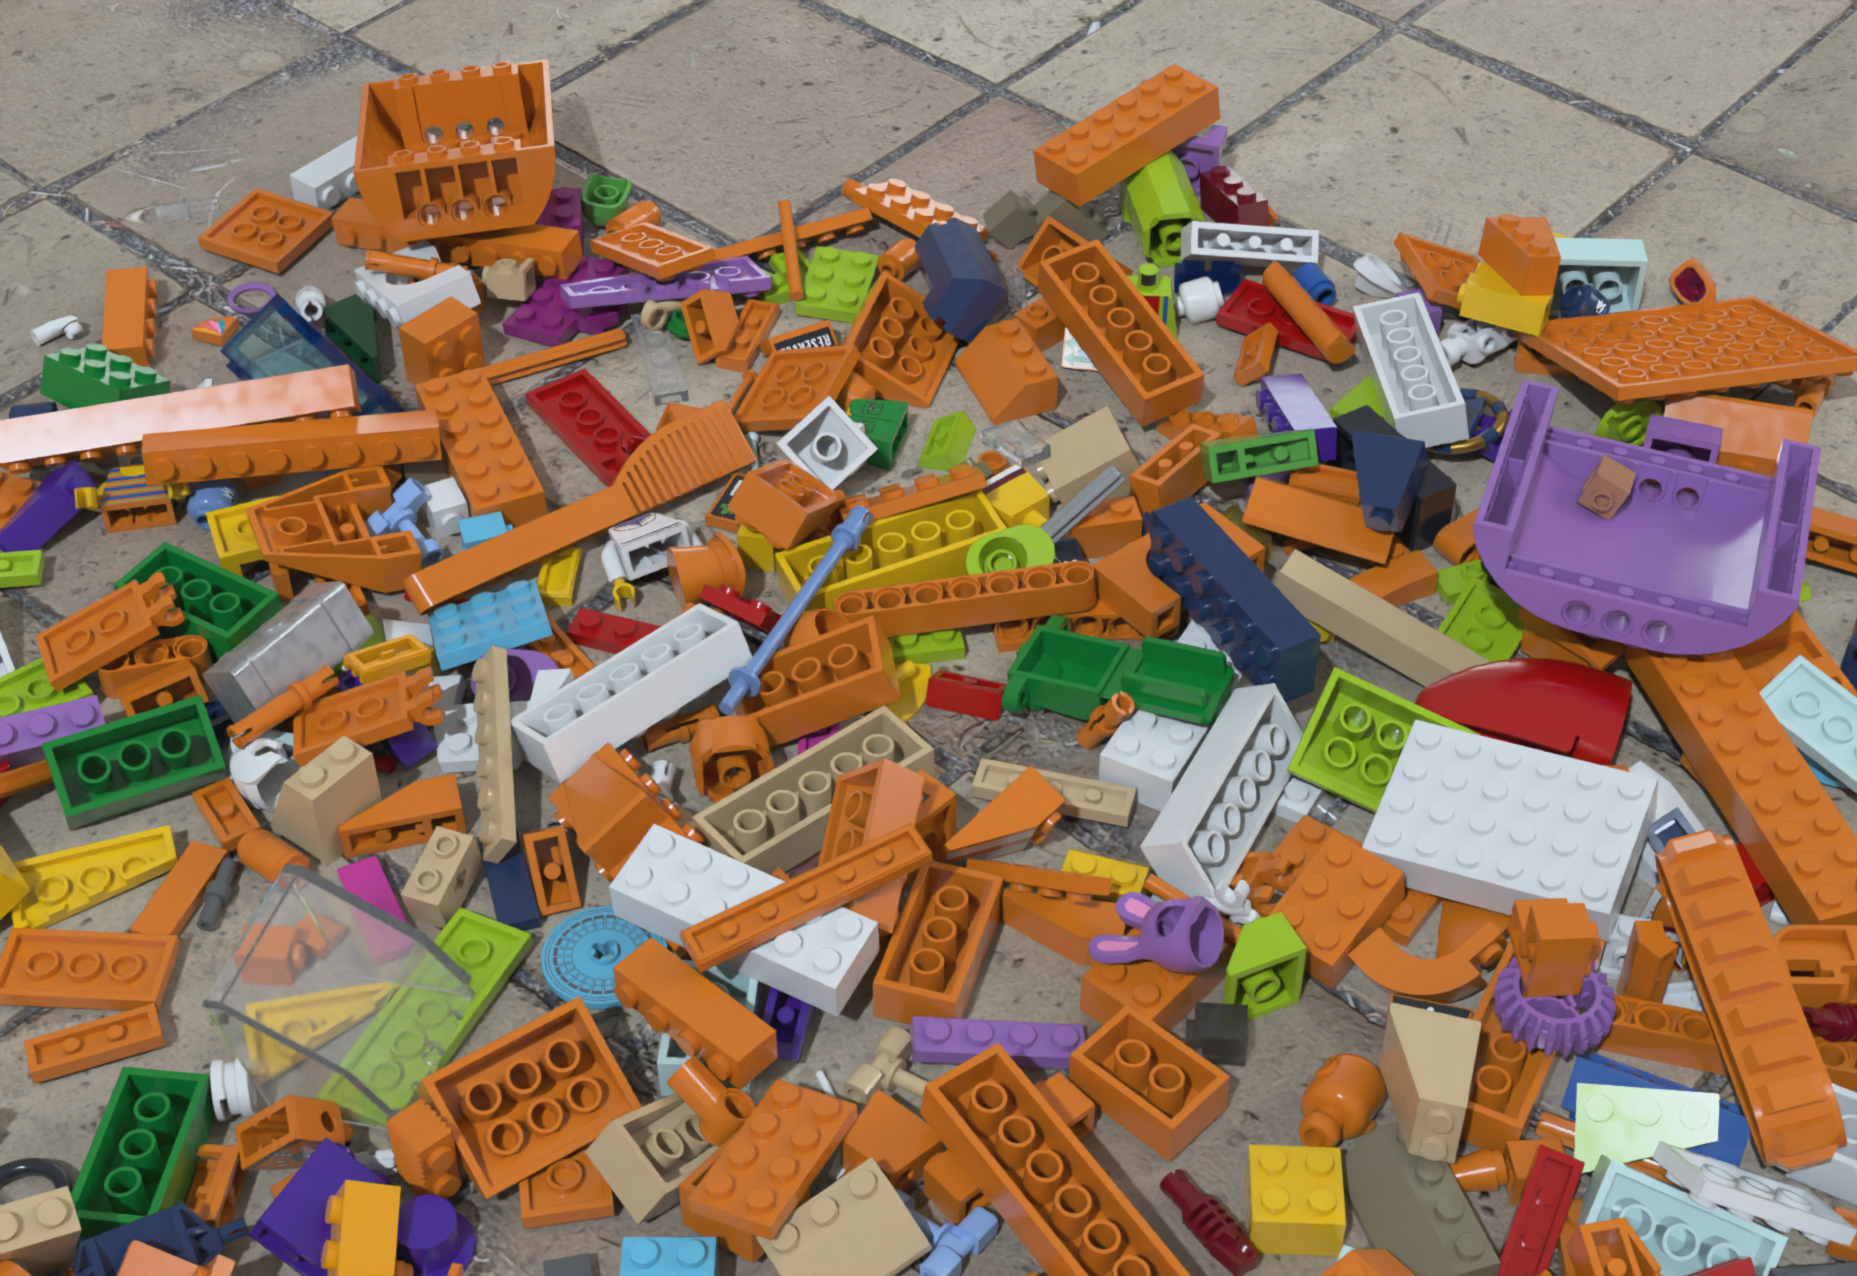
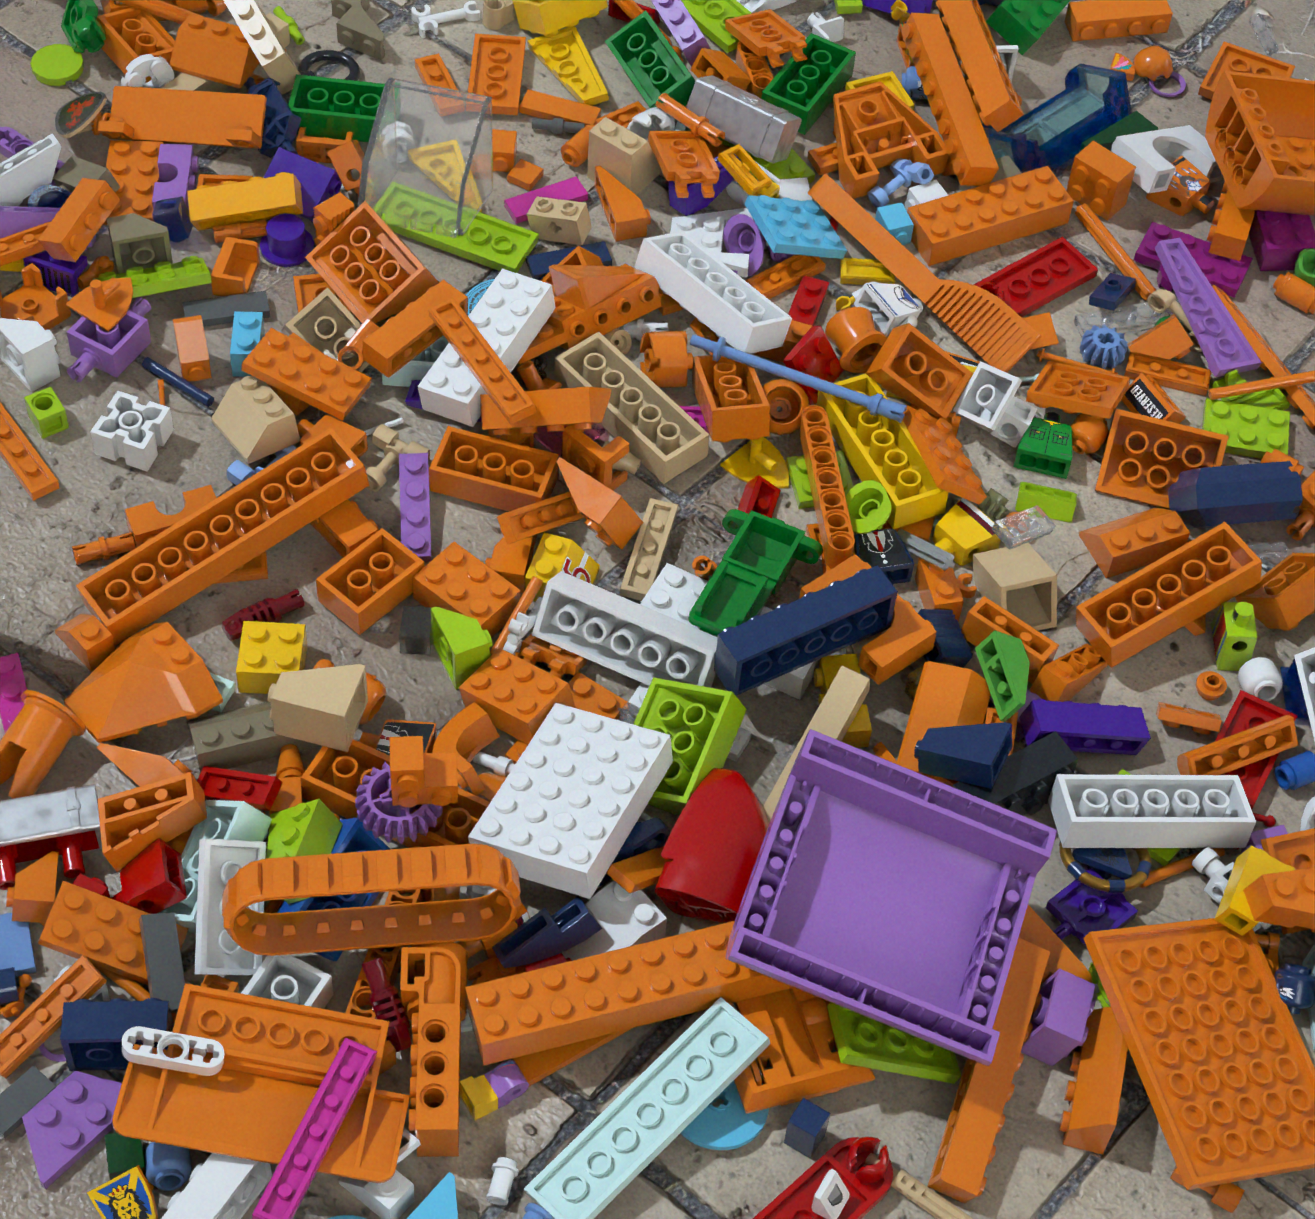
camera: 85 degrees right, 10 degrees up
(78, 592) = (831, 29): none -> white bracket
(221, 298) = (1153, 62): none -> orange hair
(310, 302) = (1149, 106): white hinge -> none
(405, 265) = (1182, 158): orange pin -> none
(495, 755) = (698, 222): tan plate -> none
(510, 279) = (1197, 208): tan brick -> none
(621, 360) = (1112, 291): none -> dark blue plate
(653, 250) = (1238, 292): orange plate -> none
(712, 375) = (1103, 347): none -> medium blue gear
(1173, 934) = (464, 573): medium lavender piece -> none
(1205, 340) = (1209, 691): none -> orange plate
(1427, 936) = (501, 765): none -> white bar
(1606, 487) = (956, 907): nougat brick -> none

